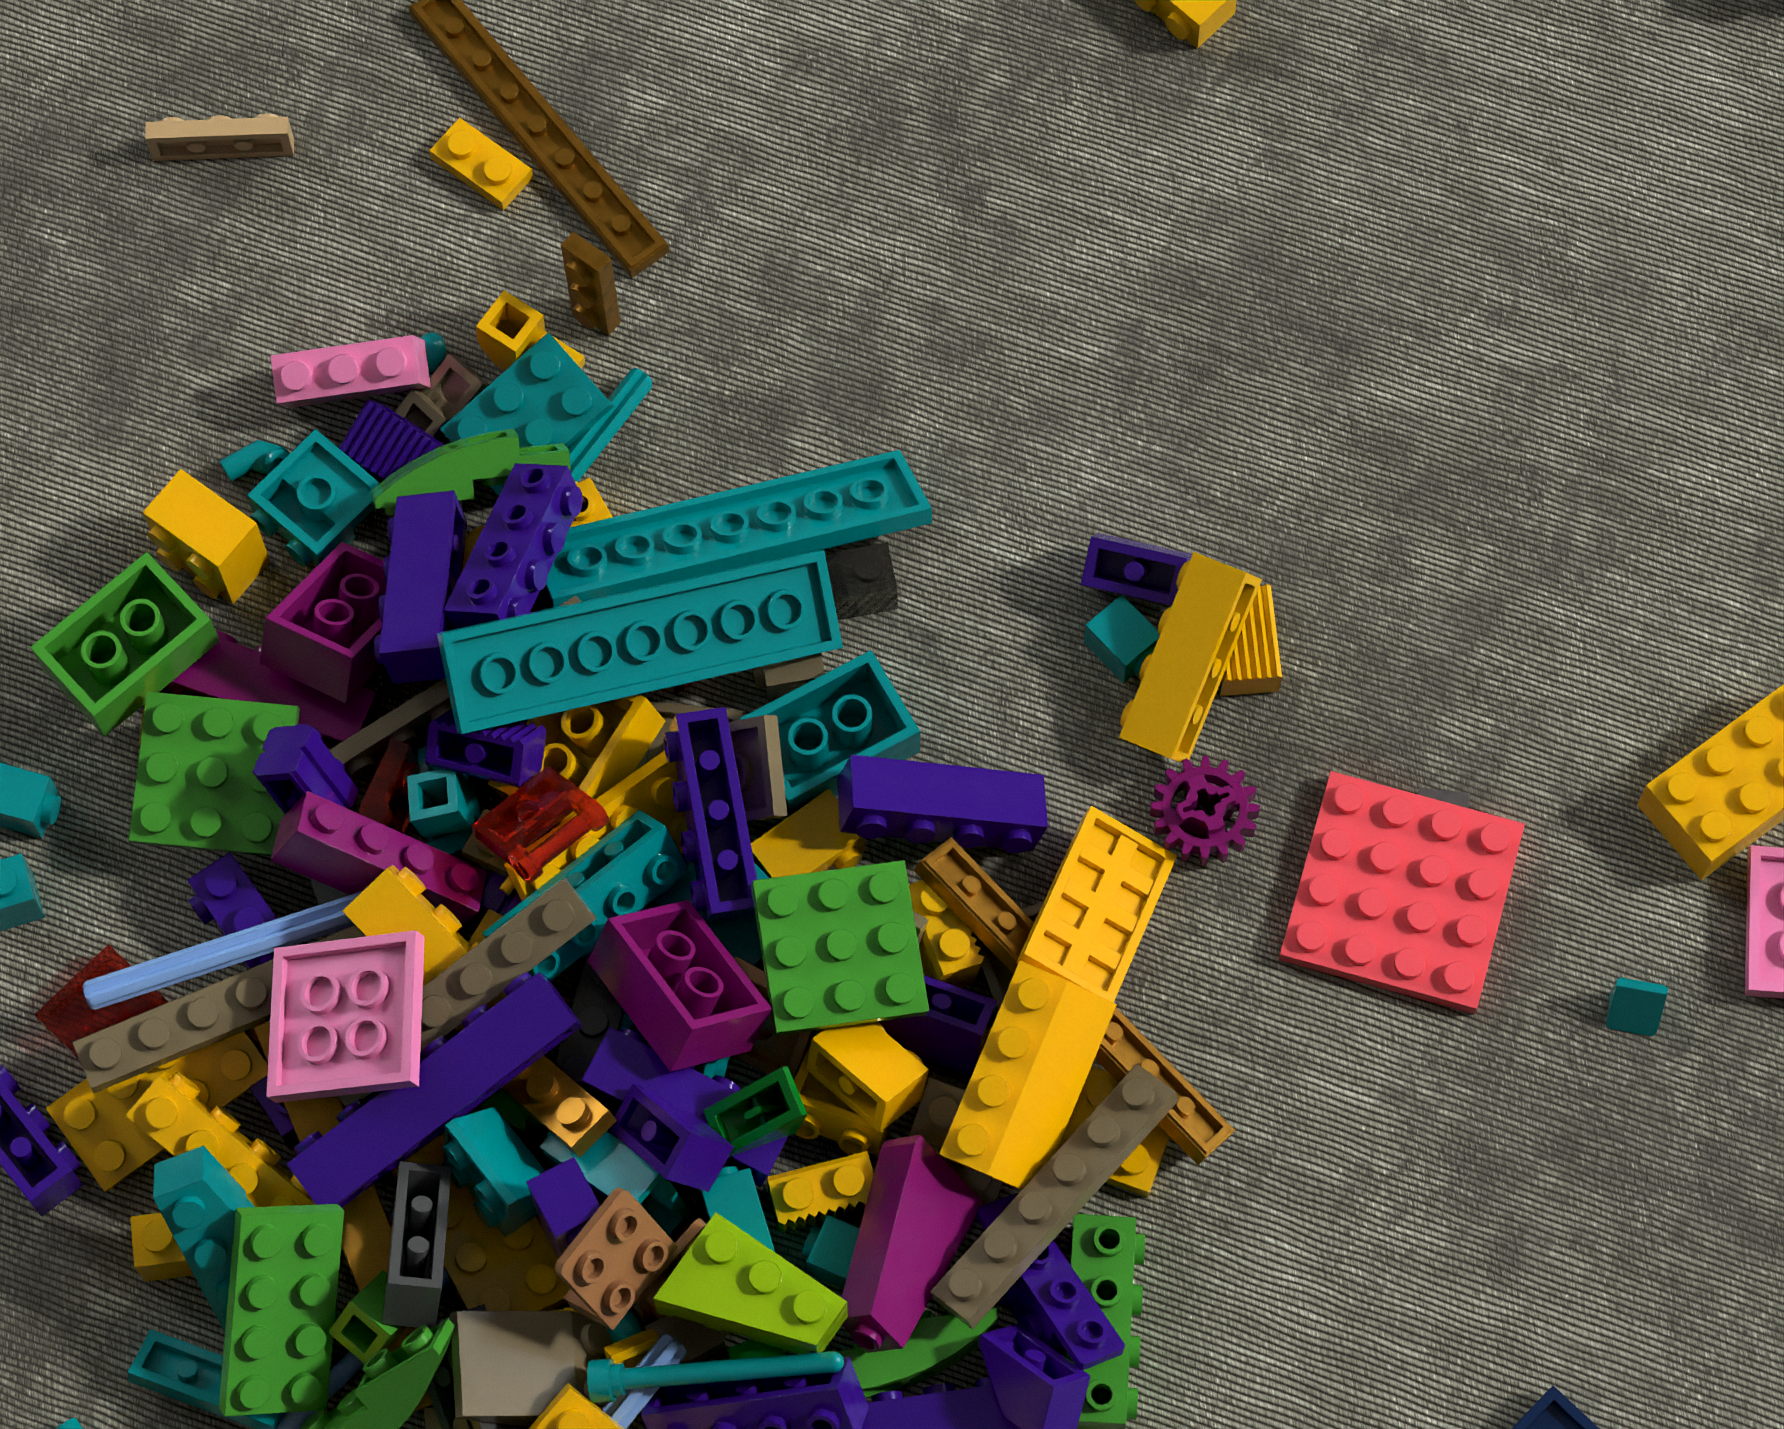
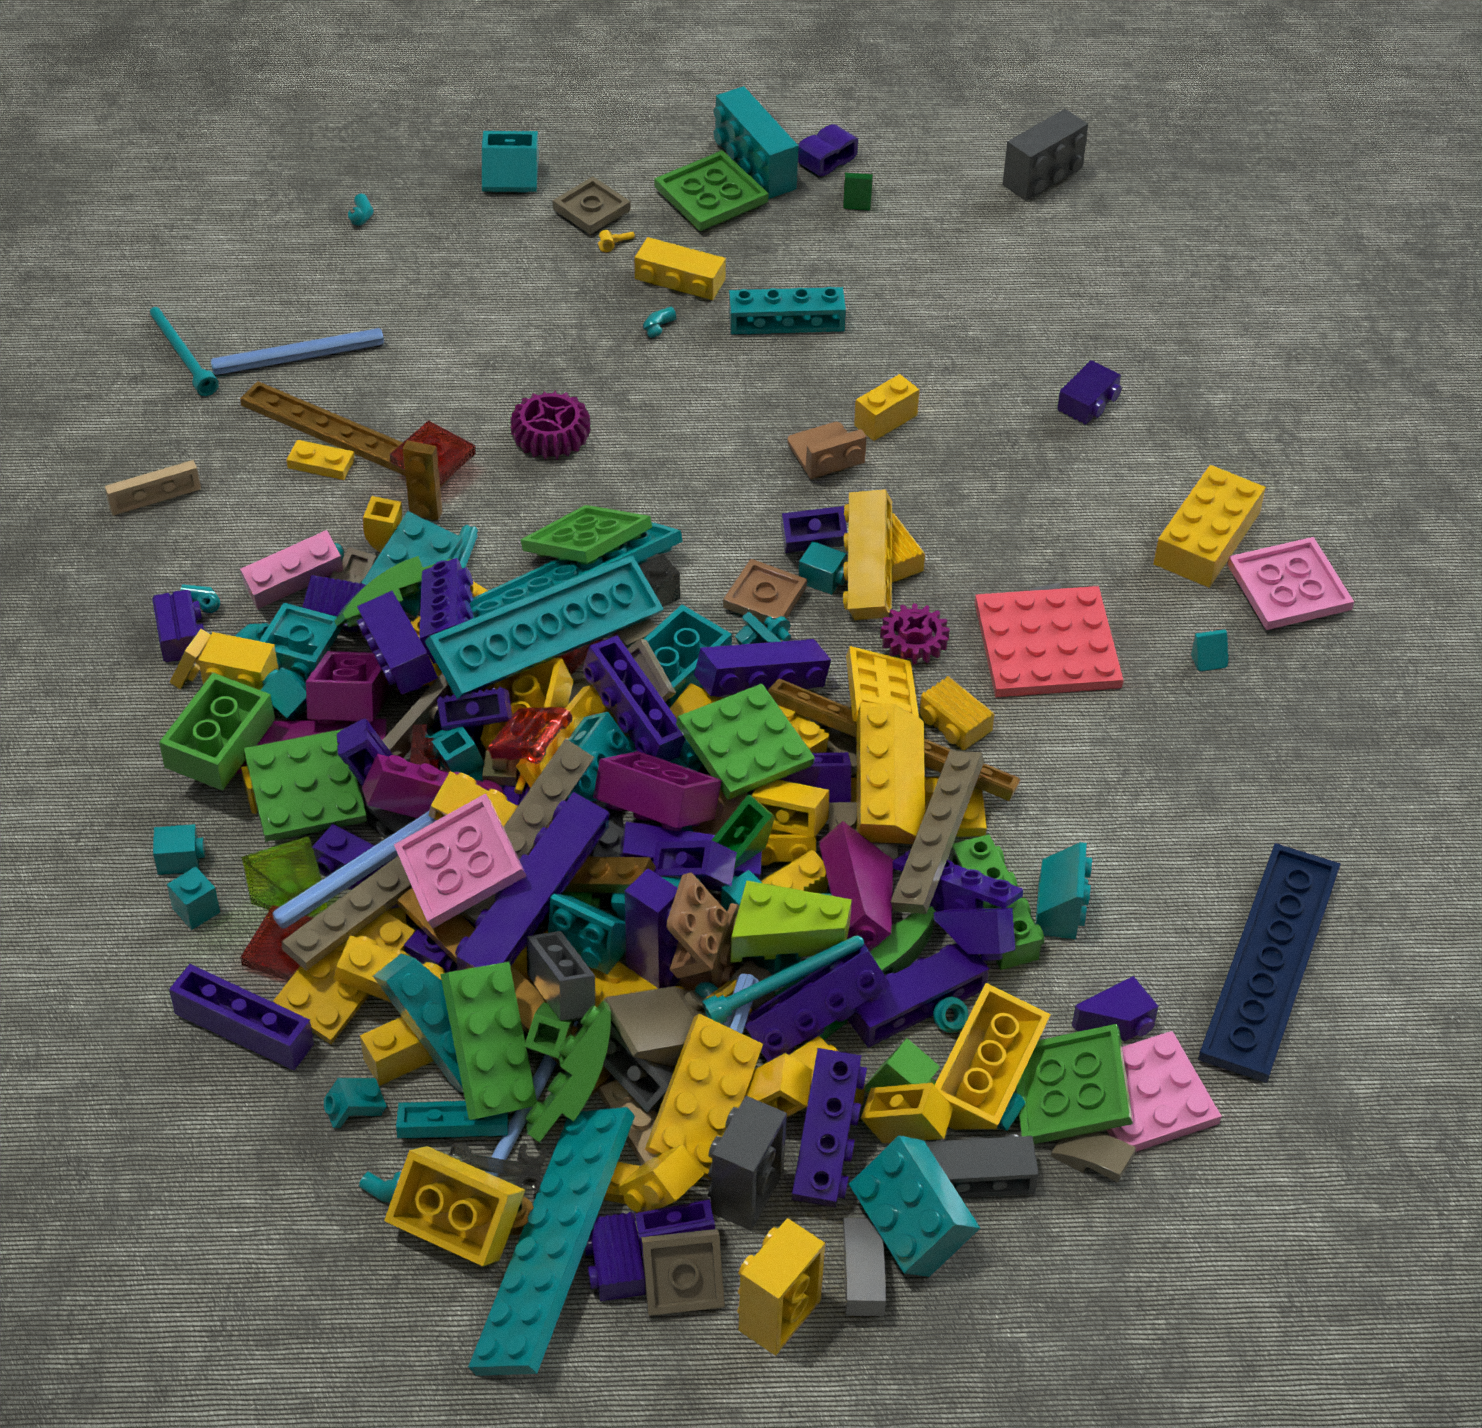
camera: 25 degrees left, 20 degrees down
(97, 1298) = (353, 1098): none -> teal bracket
(138, 913) = (281, 873): none -> clear neon green slope
(149, 485) = (189, 666): none -> yellow plate
(162, 407) = (176, 622): none -> dark purple brick
(222, 363) = (205, 595): none -> teal arm
(253, 594) = (286, 692): none -> teal slope
(638, 222) = (451, 449): none -> clear red plate
(794, 461) = (586, 534): none -> bright green plate
(873, 211) = (550, 424): none -> magenta gear
(973, 722) = (756, 632): none -> teal hips
(1019, 653) = (764, 591): none -> medium nougat plate
(1087, 63) = (657, 318): none -> teal arm
(1191, 1357) = (1064, 891): none -> teal slope
(1197, 977) = (956, 713): none -> yellow brick
(1233, 412) = (828, 449): none -> medium nougat bracket
(1294, 118) = (787, 310): none -> teal brick
(1359, 368) = (886, 407): none -> yellow brick
(1693, 448) = (1089, 392): none -> dark purple brick

